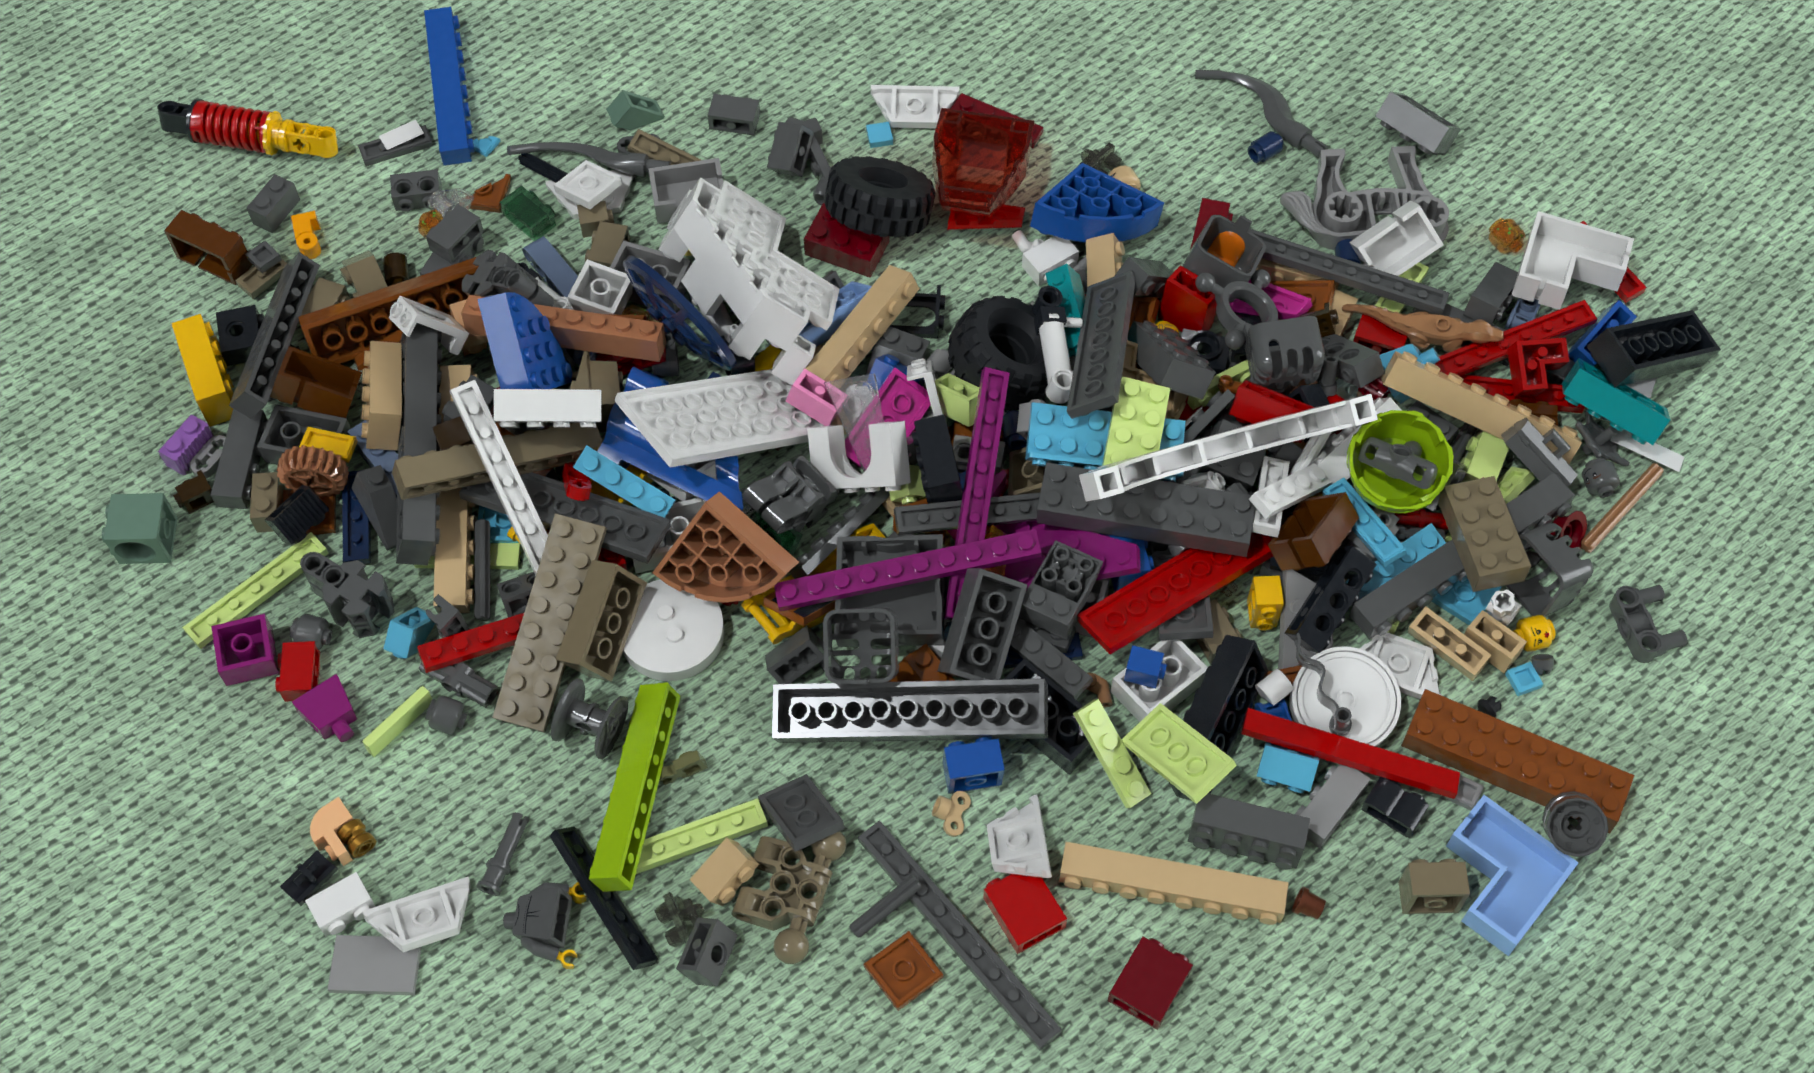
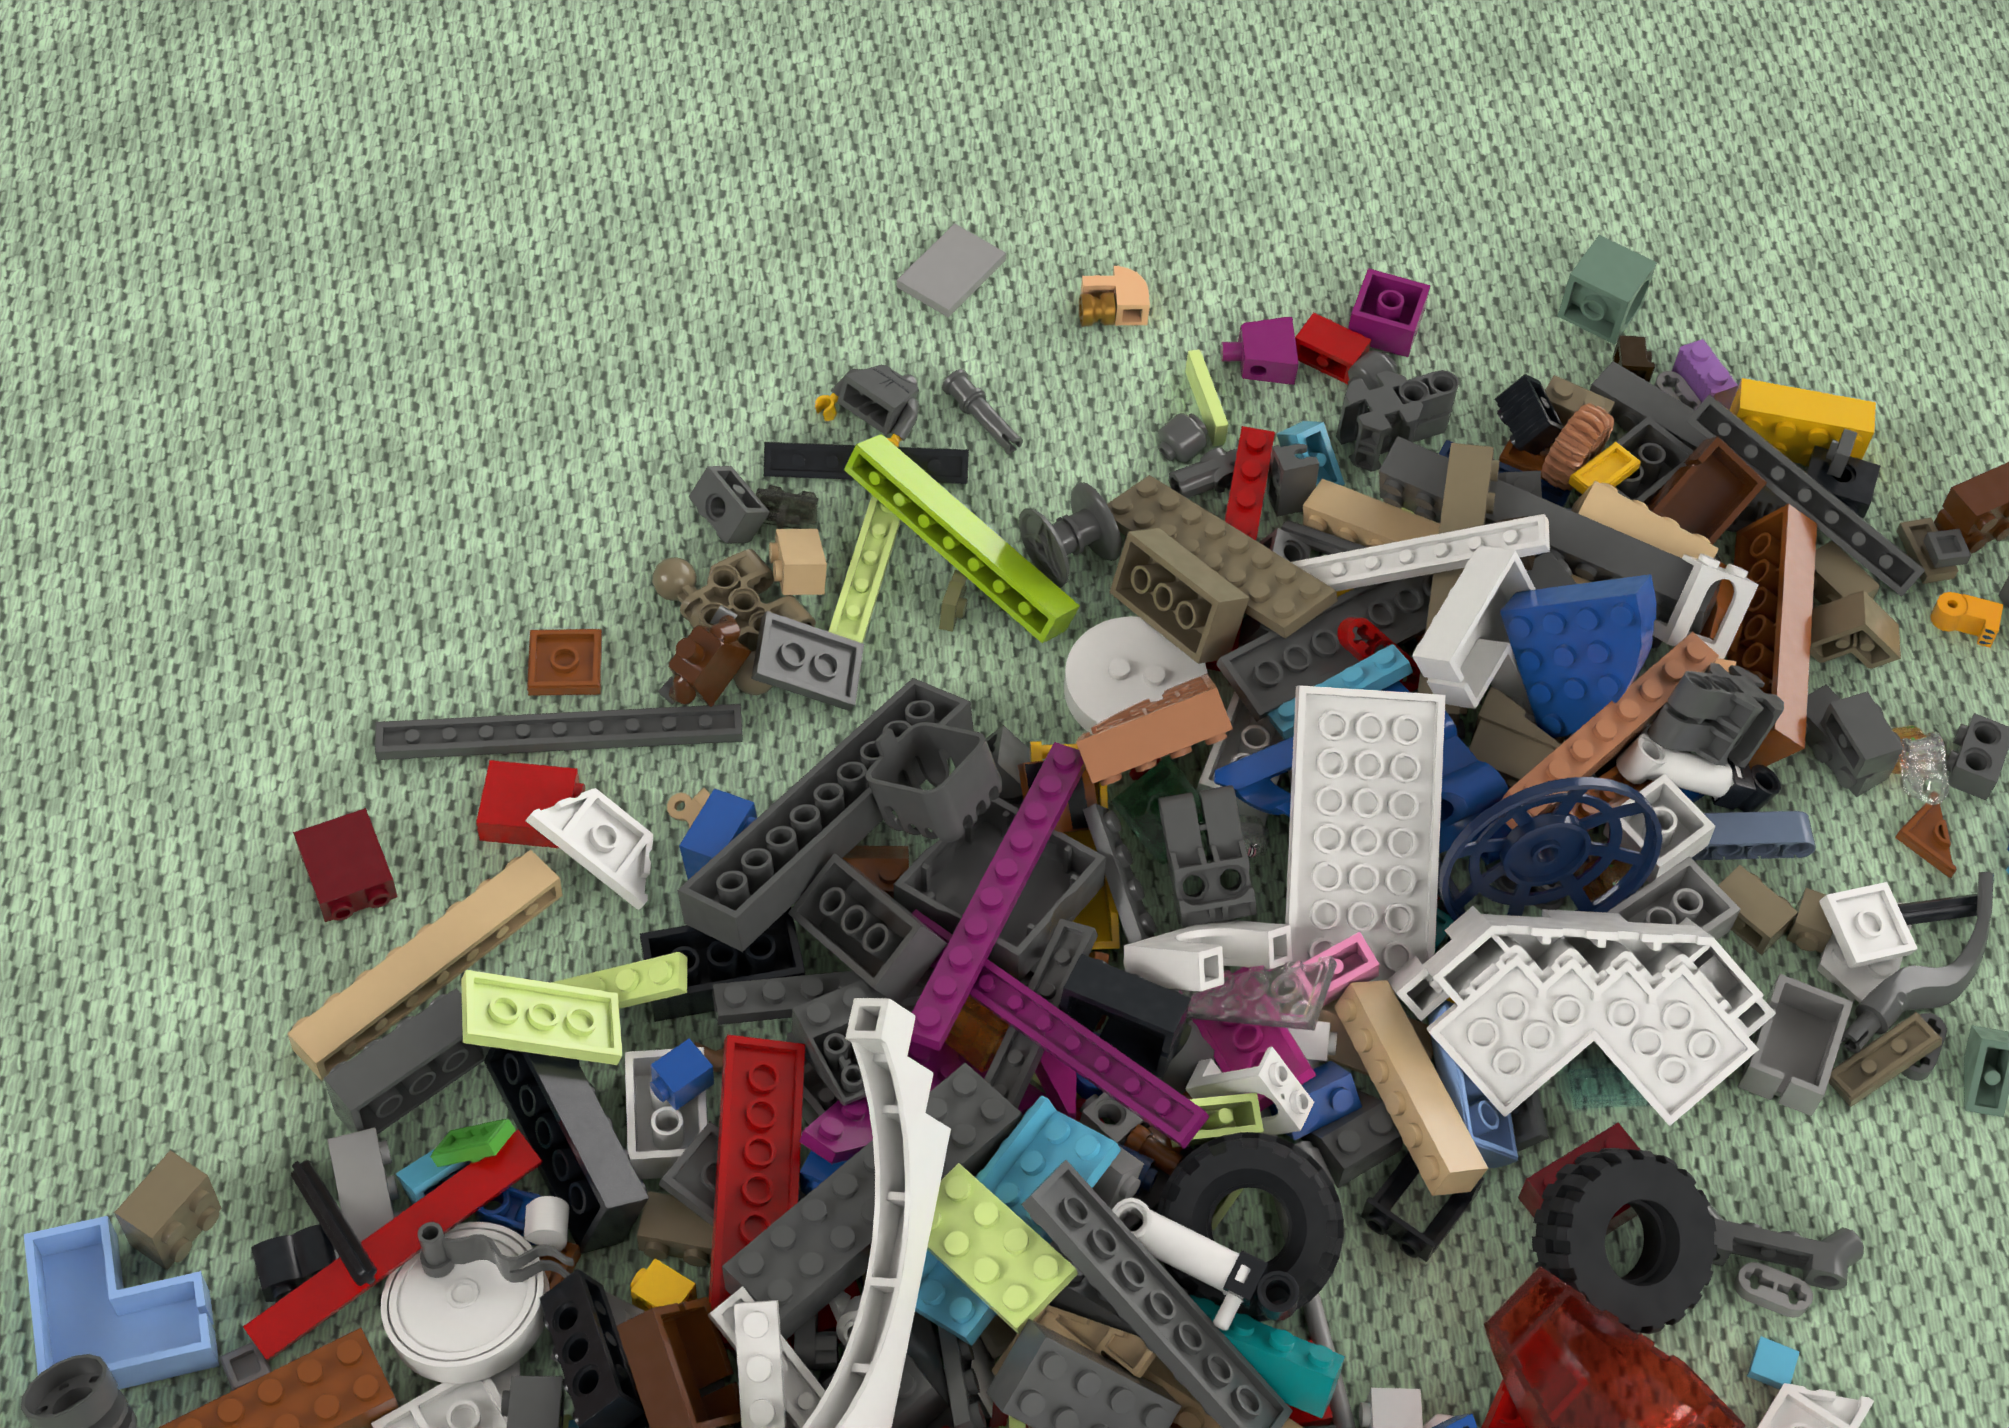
camera: 120 degrees right, 5 degrees down
(226, 327) = (1840, 452): none -> dark grey plate
(253, 590) = (1465, 362): yellowish green plate -> none
(308, 877) = (1081, 253): black hips -> none
(340, 904) = (1033, 267): white brick -> none
(395, 268) = (1849, 674): dark brown brick -> none
(422, 916) = (966, 318): white wing -> none
(528, 213) = (1867, 854): clear green piece -> none
(734, 114) = (1915, 1187): dark grey brick -> none
(790, 149) = (1795, 1204): dark grey brick -> none
(834, 150) = (1773, 1289): none -> light grey beam
(853, 855) = (706, 661): none -> reddish brown torso
(885, 906) = (642, 681): dark grey axle -> none
(1272, 742) = (472, 1142): none -> bright green plate
(1308, 903) = (281, 1083): copper piece -> none
(1367, 792) = (334, 1223): none -> black axle

